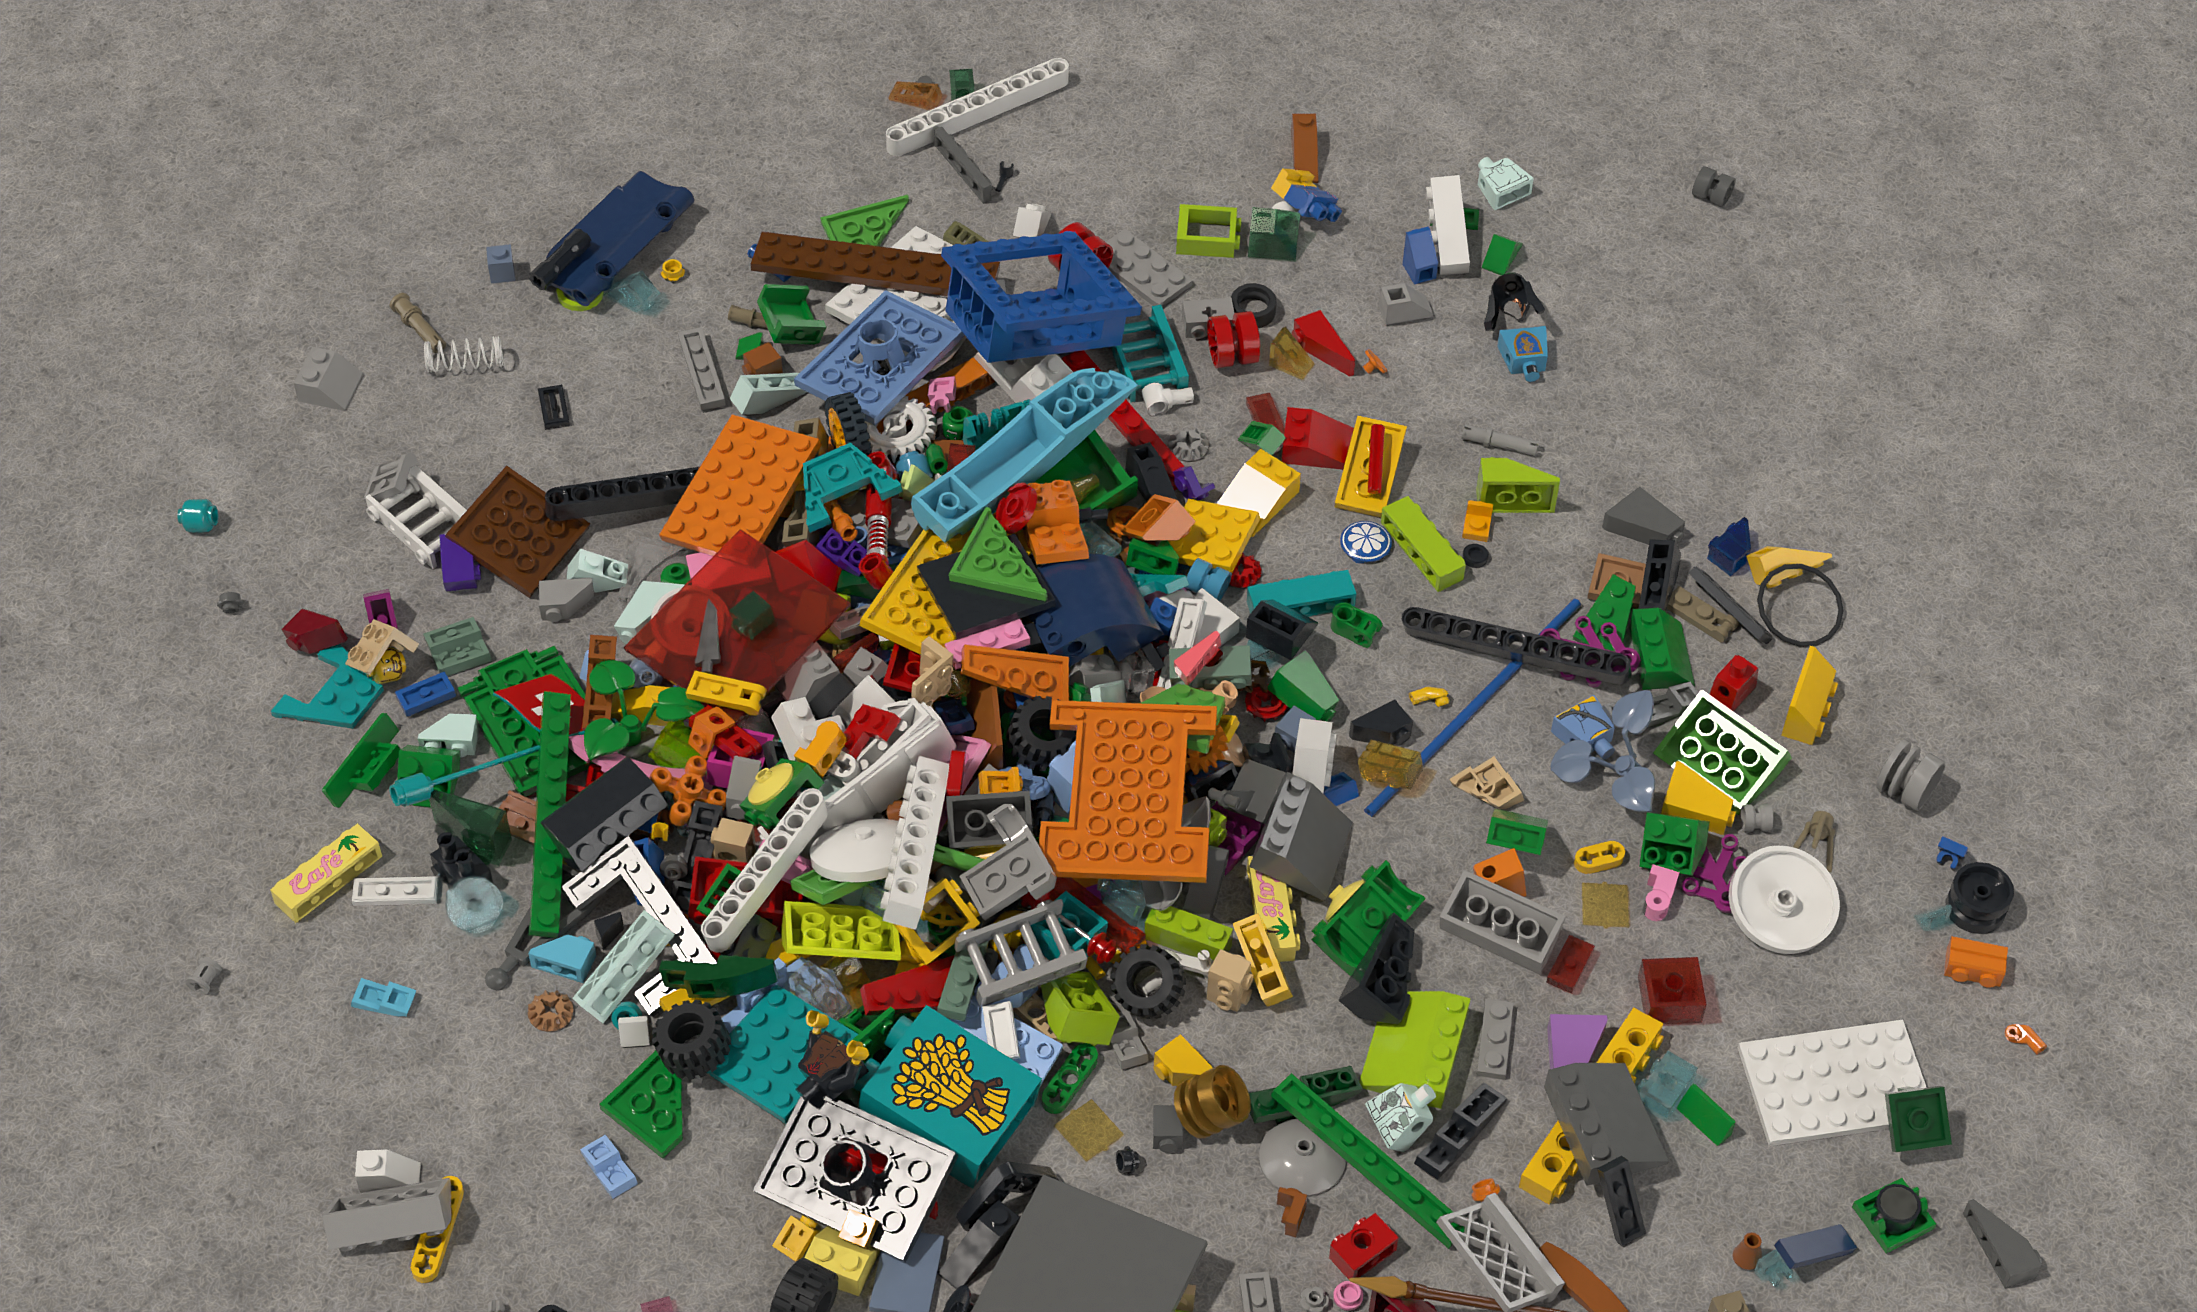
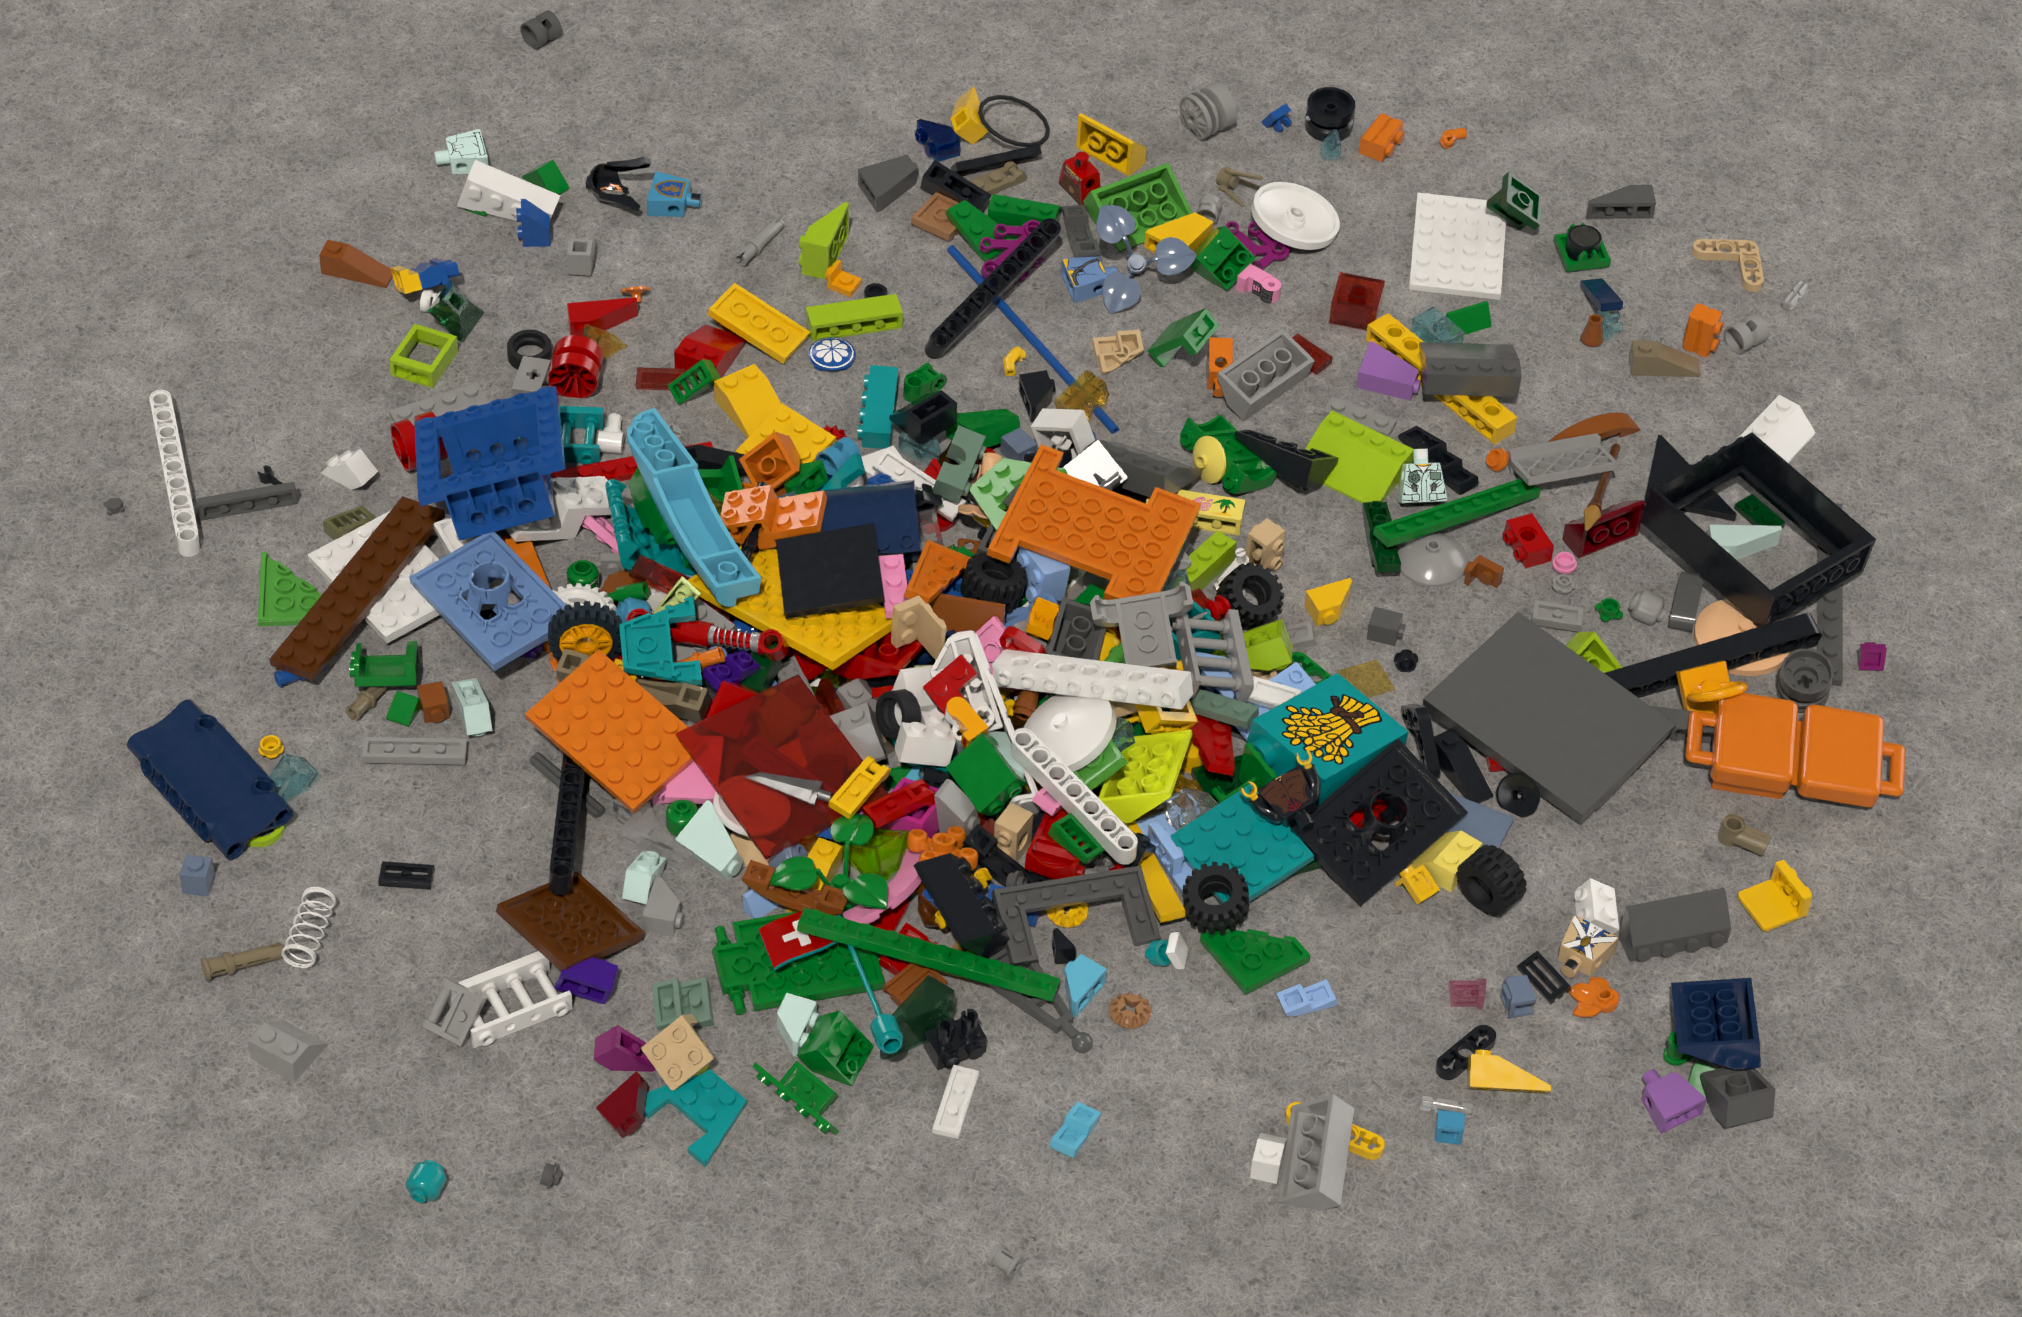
camera: 75 degrees left, 5 degrees down
(326, 873) = (921, 1146): light yellow brick -> none
(425, 694) = (733, 1036): blue plate -> none
(488, 910) = (1003, 1036): clear light blue plate -> none
(549, 269) = (242, 828): black axle -> none
(623, 966) = (1122, 933): light aqua fence -> none
(704, 731) = (895, 813): orange bracket -> none
(728, 977) = (1162, 866): dark green slope -> none
(751, 615) = (786, 743): clear green brick -> none
(770, 783) = (989, 773): light yellow dish -> none
(858, 1229) = (1433, 831): plate -> none
(928, 100) = (132, 499): clear orange slope -> none
(941, 392) = (551, 570): bright pink plate -> none
(961, 83) = (141, 477): clear green brick -> none
(995, 562) = (809, 558): bright green tile -> none
(1017, 508) = (754, 526): red tile -> none
(1109, 692) = (966, 532): light aqua slope -> none
(1188, 484) = (725, 439): dark purple bracket -> none
(1192, 661) = (962, 460): coral slope -> none
(1212, 1101) = (1381, 584): pearl gold wheel -> none
(1264, 961) = (1244, 516): yellow slope -> none
(1376, 459) = (760, 312): red axle -> none
(1599, 857) = (1216, 308): yellow beam -> none
(1605, 905) = (1254, 321): clear yellow piece -> none
(1621, 1200) = (1540, 378): black plate -> none

